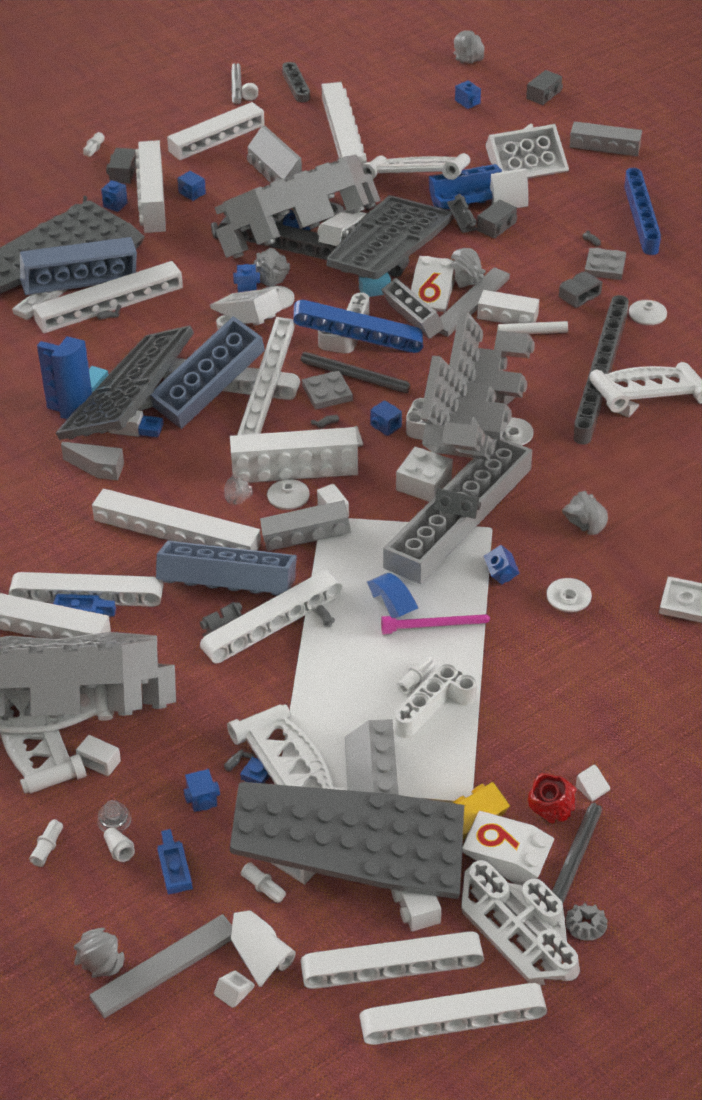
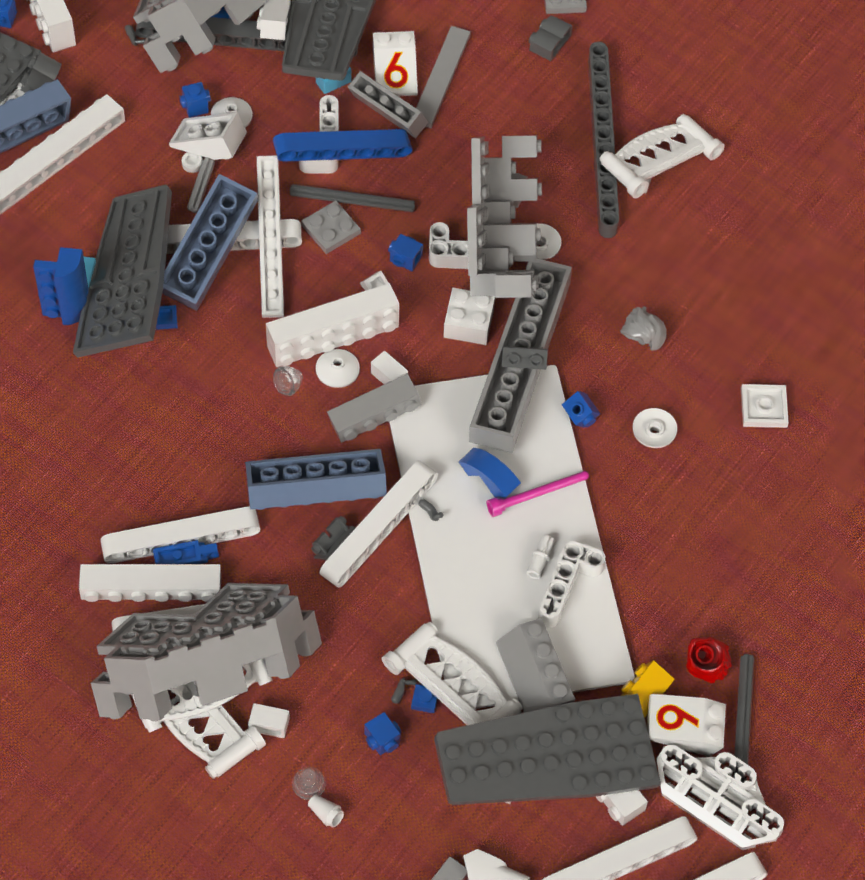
camera: 20 degrees left, 15 degrees up
(46, 843) = (256, 826): white axle -> none
(96, 460) = (127, 374): light grey slope -> none
(109, 314) = (60, 175): dark grey piece -> none
(172, 522) = (239, 435): white brick -> none
(173, 864) = (385, 817): blue hinge -> none
(263, 882) = (476, 815): white axle -> none
(272, 267) = (216, 77): light grey hair -> none
(325, 421) = (344, 268): dark grey piece -> none
(467, 267) = (428, 37): light grey hair -> none
(507, 308) = (484, 80): white brick -> none
(535, 328) = (516, 100): white piece -> none
(584, 930) = (774, 786): light grey gear -> none
(592, 783) = (737, 632): white slope -> none
(647, 312) = (626, 57): white dish -> none

